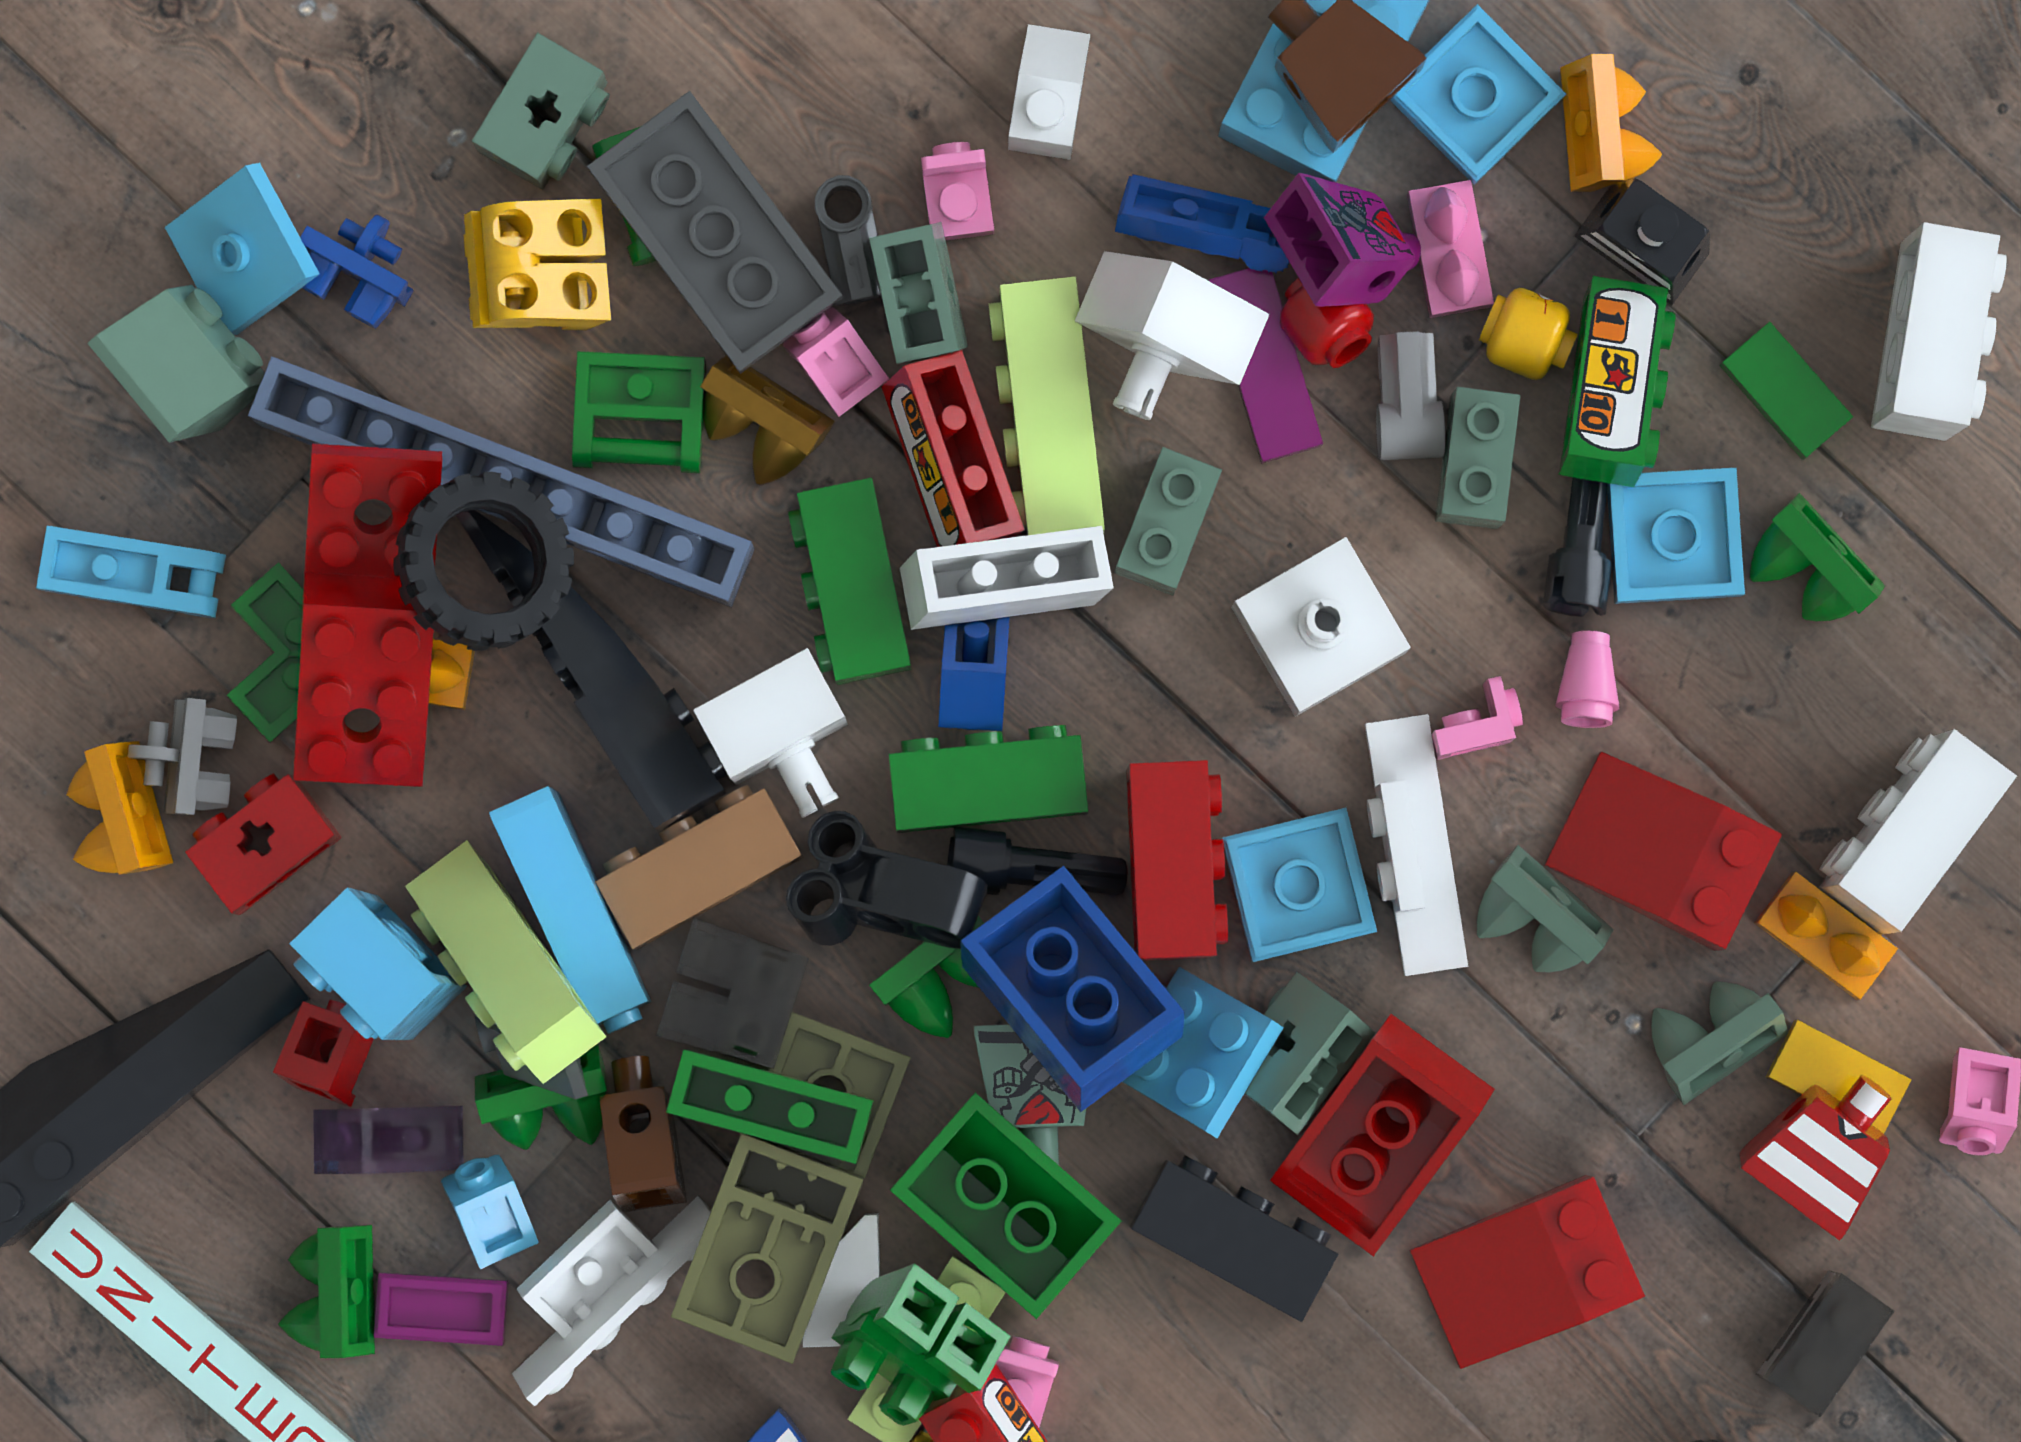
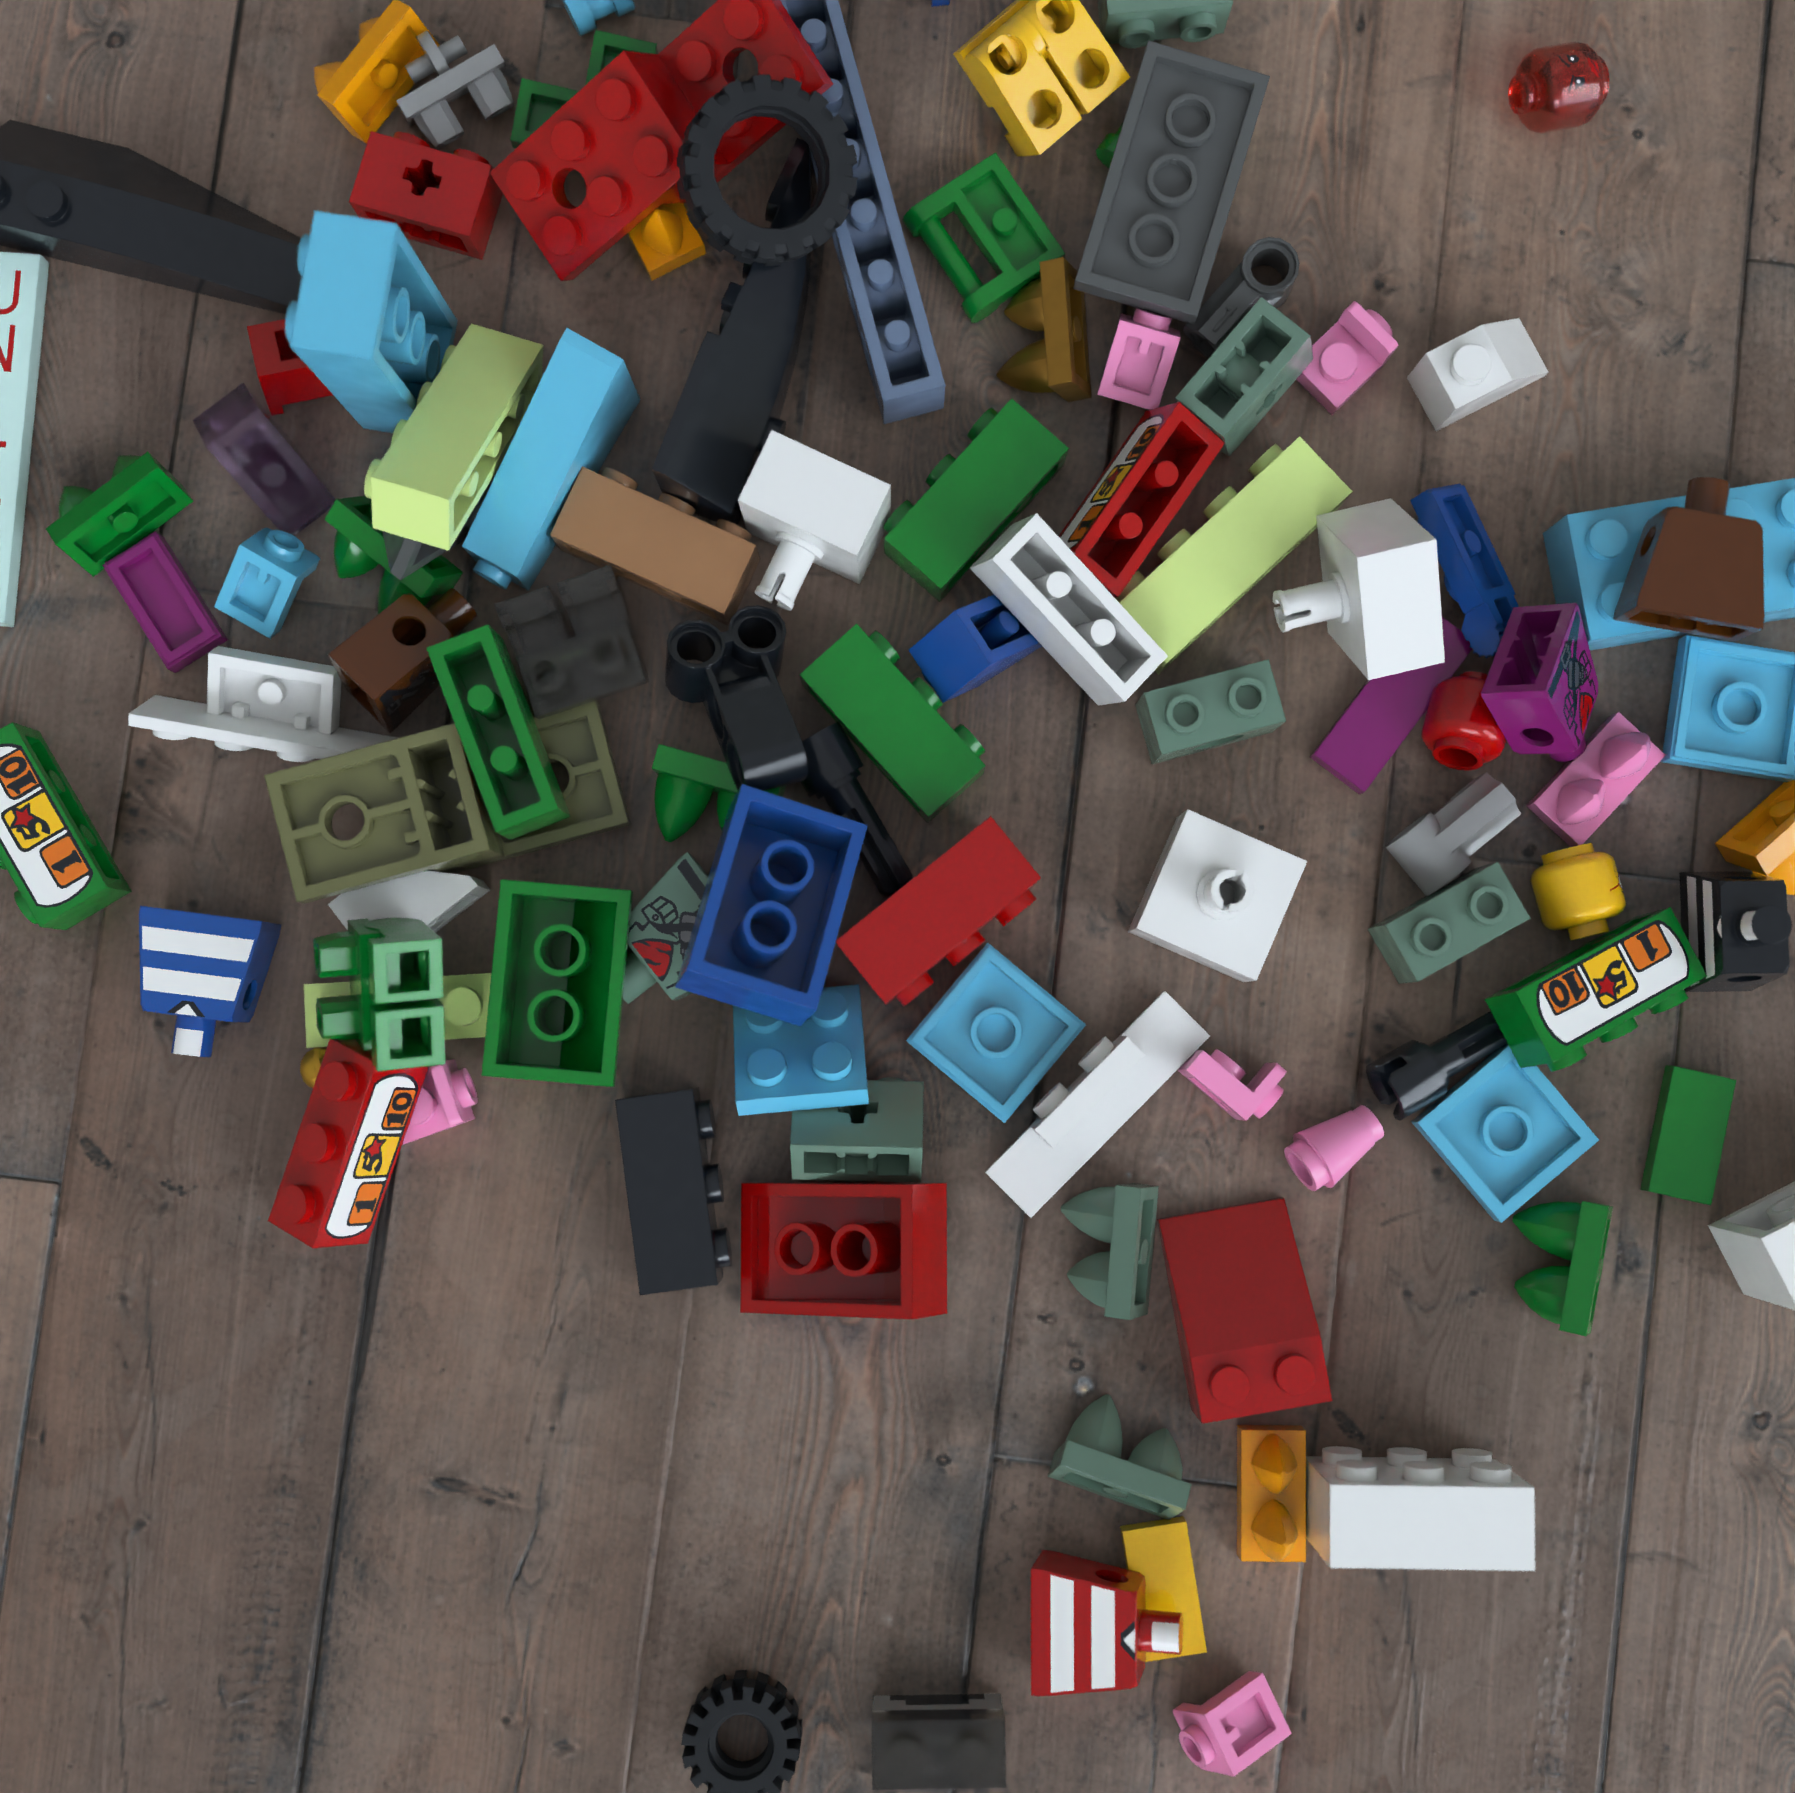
camera: 60 degrees right, 0 degrees up
(1527, 1272) = (819, 1450): red slope -> none

